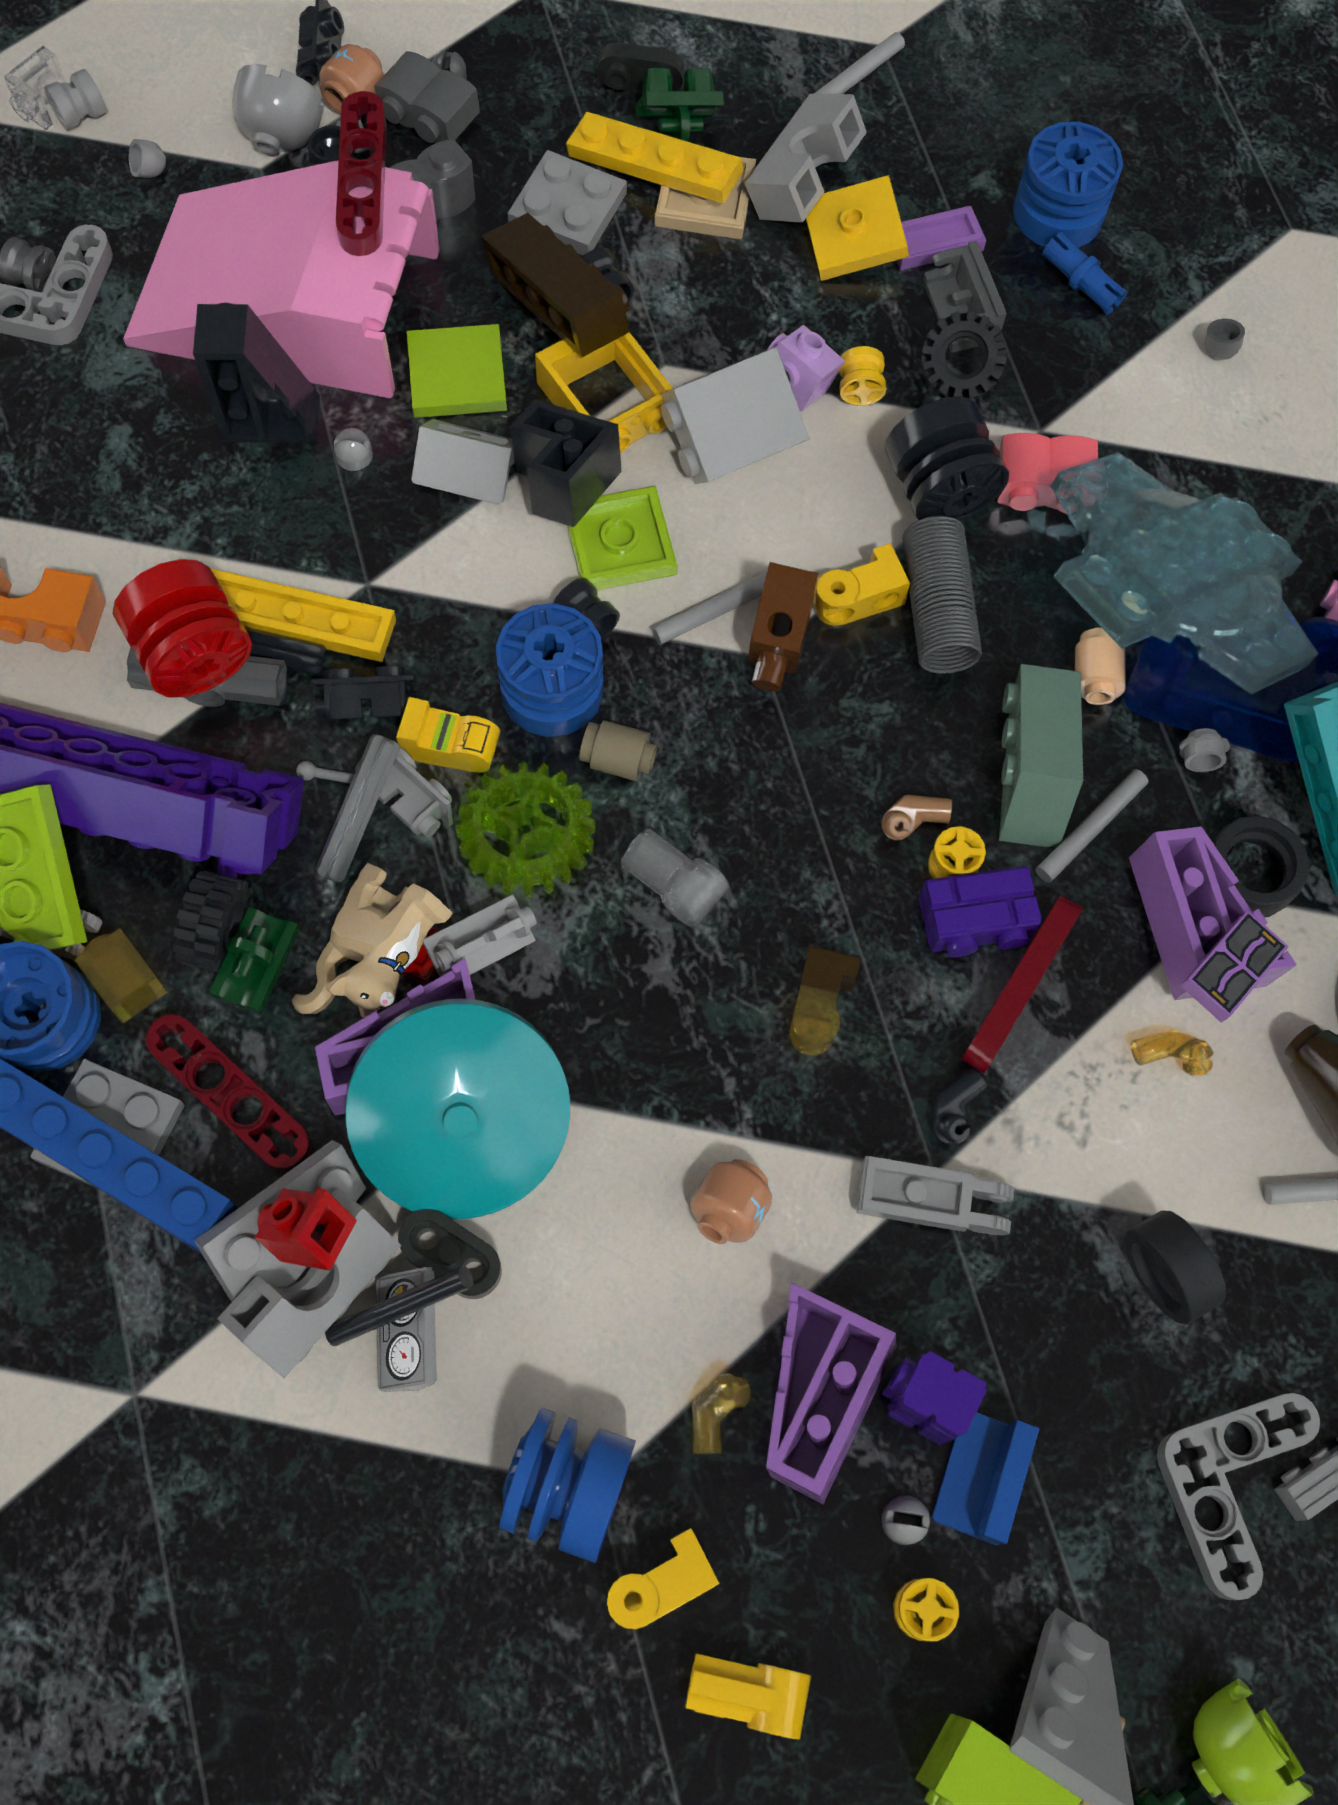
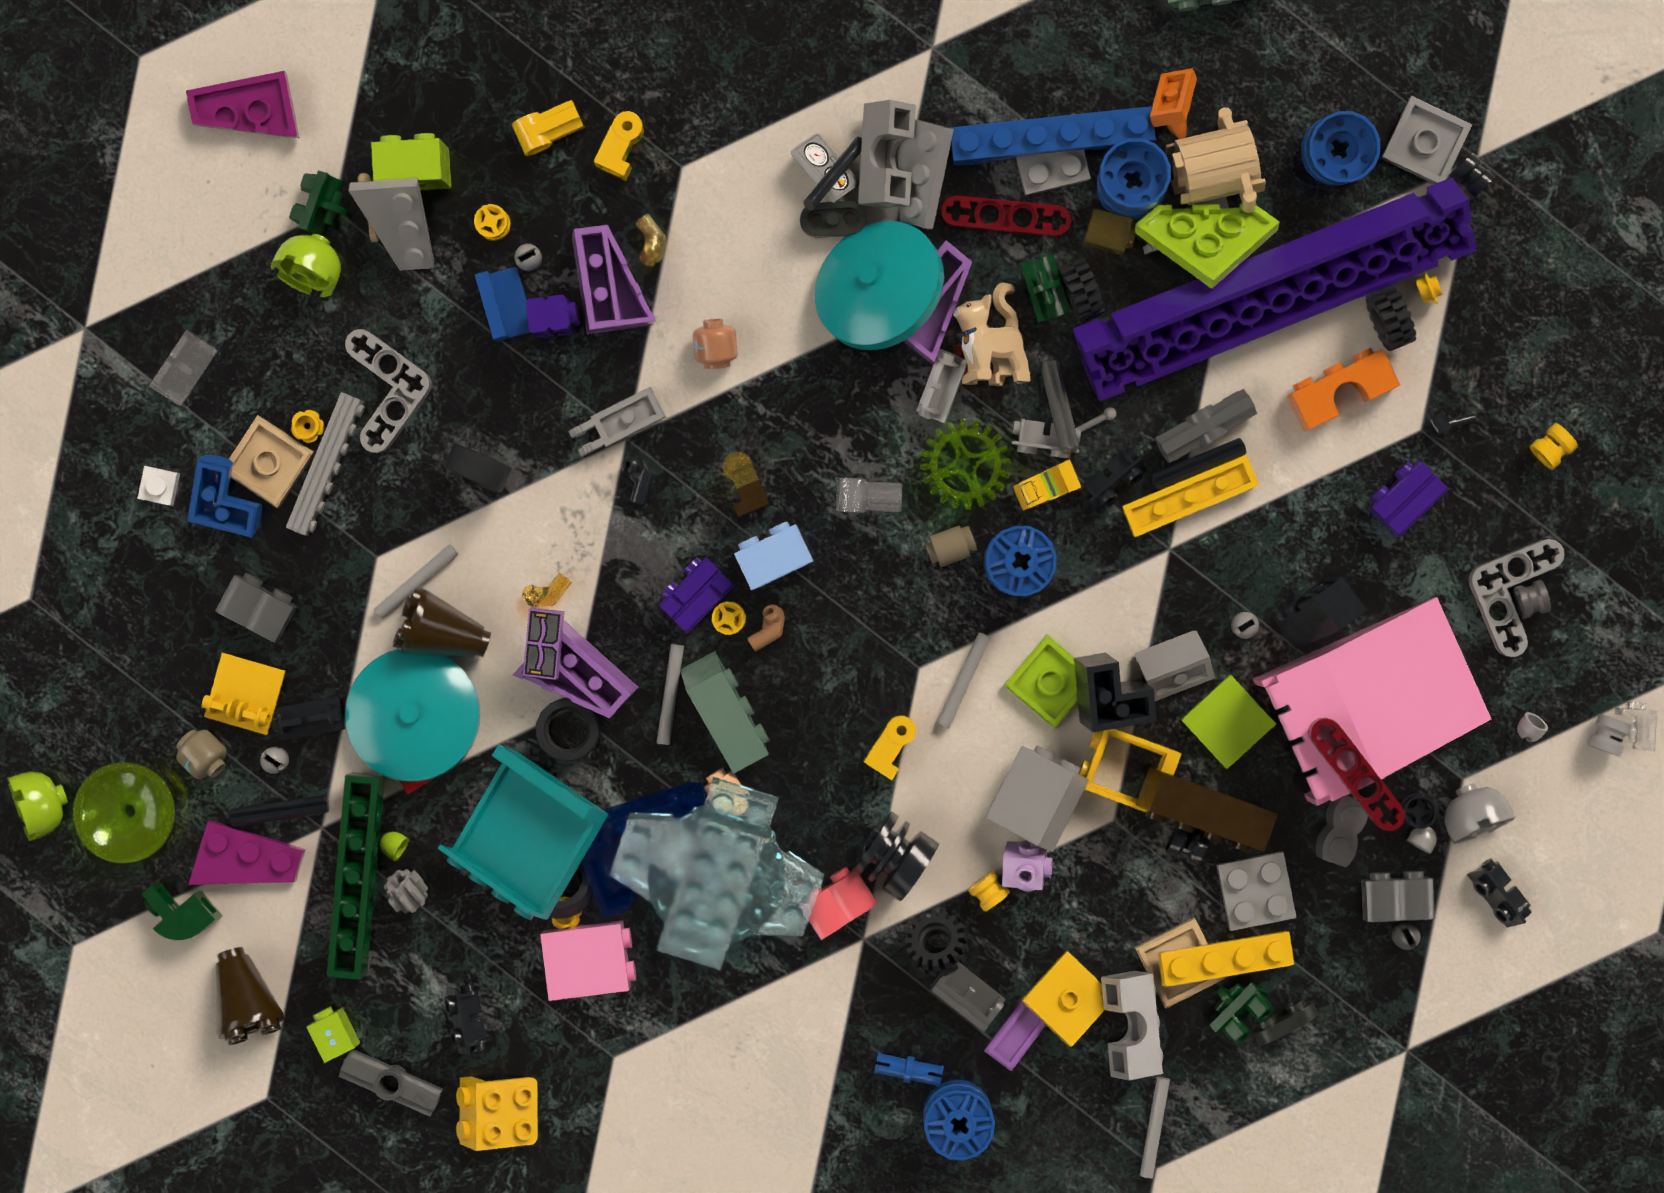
camera: 150 degrees right, 20 degrees up
(58, 446) = (1407, 497): none -> dark purple brick
(182, 628) = (1221, 424): red wheel -> none
(292, 1218) = (909, 169): red brick -> none
(347, 72) = (1453, 876): nougat head -> none
(566, 1484) = (694, 152): blue wheel -> none
(584, 598) = (1031, 615): black wheel -> none
(781, 624) = (919, 694): reddish brown torso -> none
(851, 876) = (773, 556): none -> light blue brick
(941, 595) = (851, 781): dark grey piece -> none
(1022, 984) = (647, 570): dark red beam -> none
(1204, 750) = (638, 784): light grey plate -> none
(1224, 338) = (800, 1084): dark grey hinge -> none

